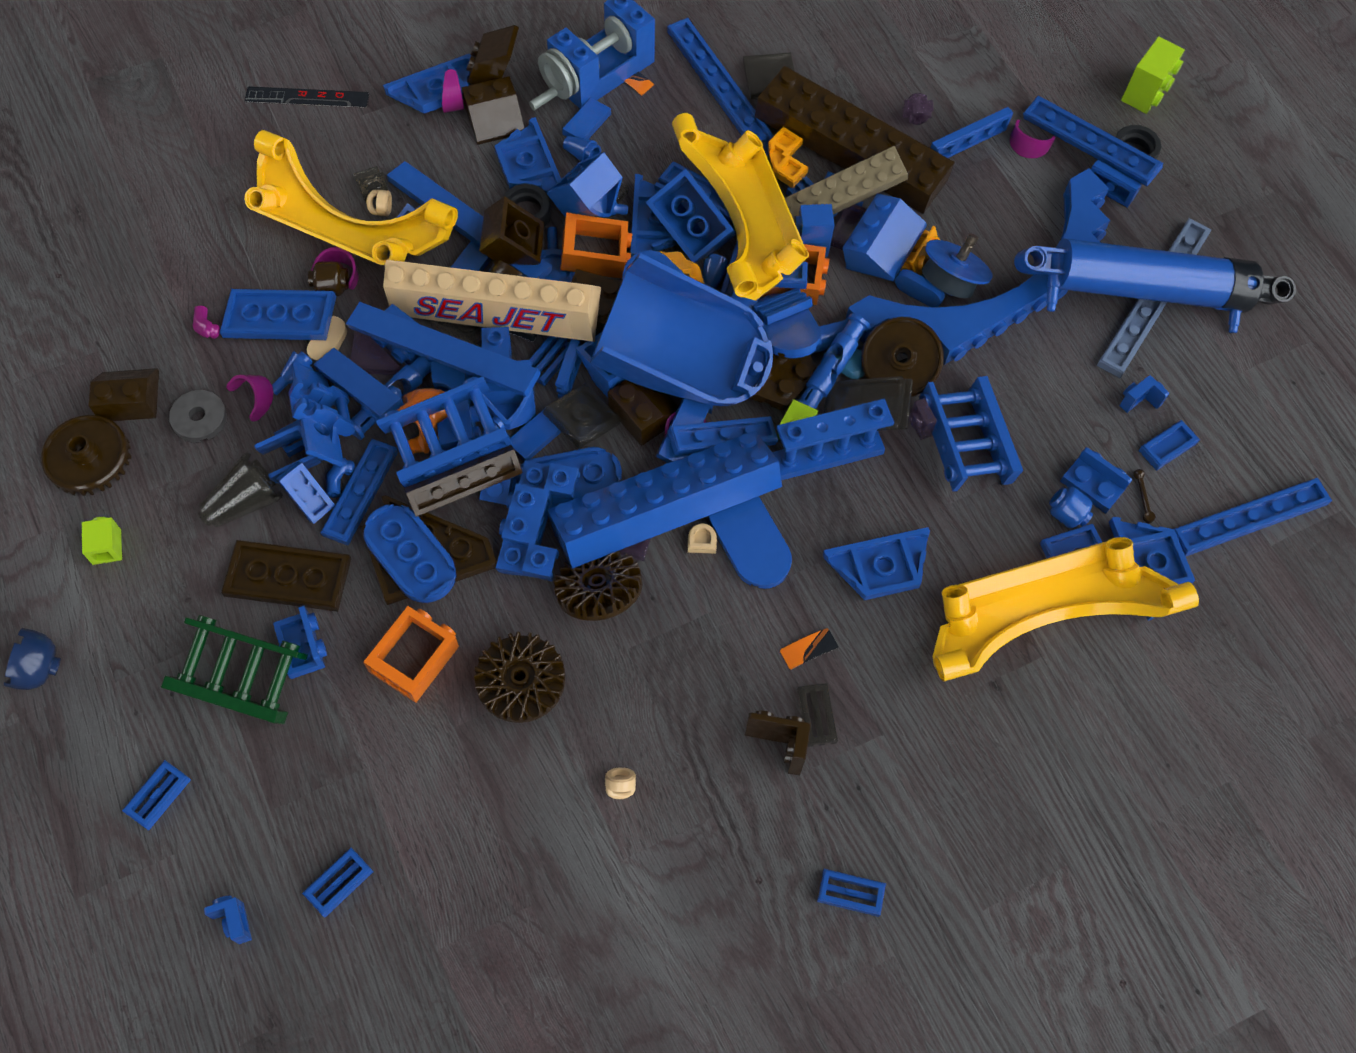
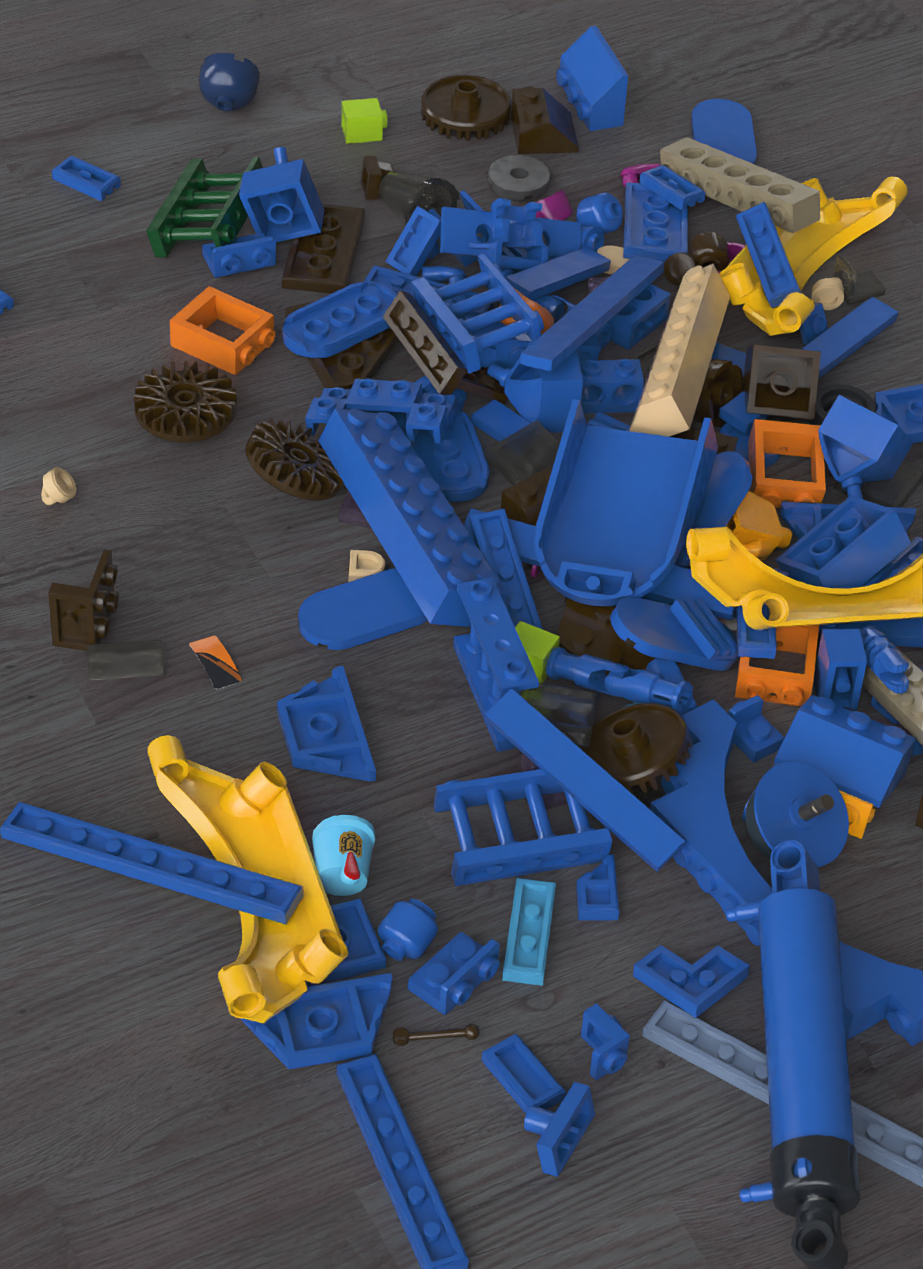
camera: 90 degrees right, 20 degrees down
(74, 343) = (594, 81): none -> blue slope
(157, 259) = (725, 127): none -> blue tile
(193, 530) = (371, 176): none -> dark brown tile
(238, 299) = (672, 187): none -> blue tile
(241, 598) = (282, 199): none -> blue piece
(250, 243) = (743, 183): none -> dark tan brick
(272, 351) = (600, 211): none -> blue head
(345, 299) = (677, 266): none -> dark brown tile
(359, 226) = (767, 254): none -> blue tile
(826, 193) = (885, 659): none -> blue hinge
(855, 291) = (753, 732): none -> blue bracket
(948, 385) = (584, 780): none -> blue tile
(1013, 395) = (598, 893): none -> blue tile
(1019, 545) = (343, 853): none -> medium azure hat
(1033, 683) = (152, 862): none -> blue tile
(1049, 436) = (529, 932): none -> dark azure tile
(1087, 342) = (687, 985): none -> blue plate
(1214, 421) = (561, 1129): none -> blue tile

